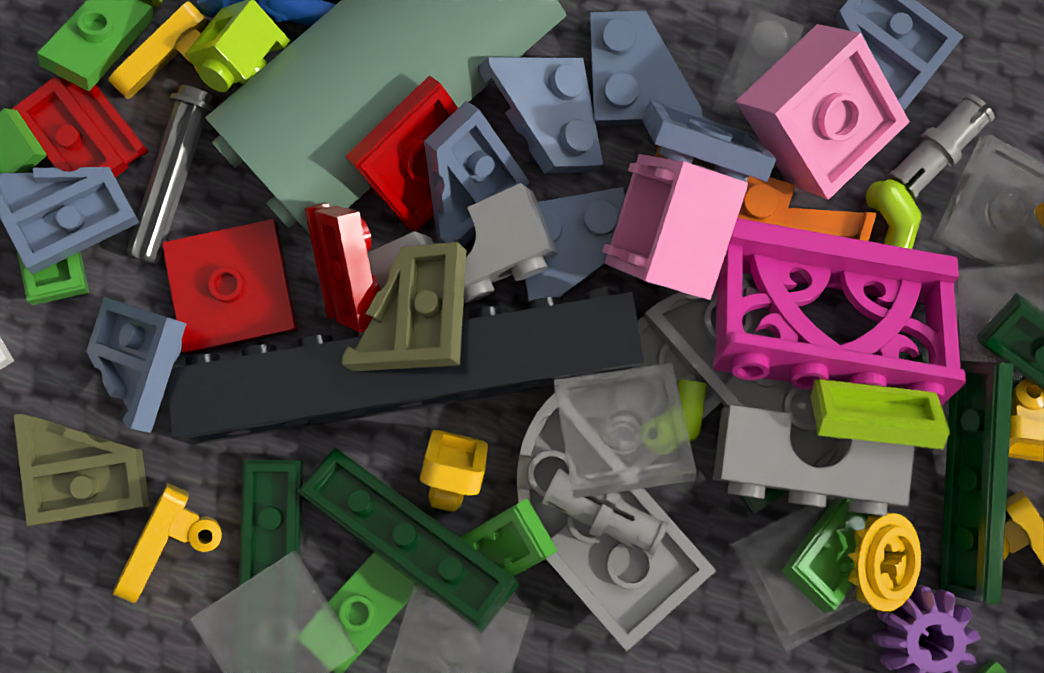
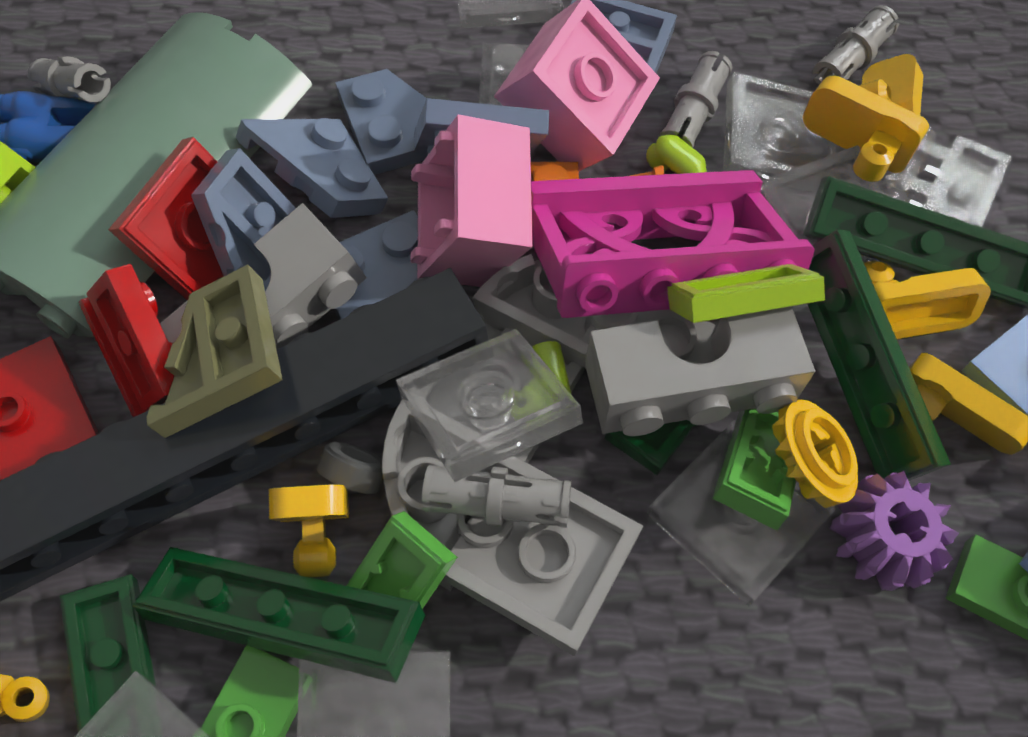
camera: 25 degrees left, 20 degrees down
(496, 430) = (351, 467): none -> dark grey tile

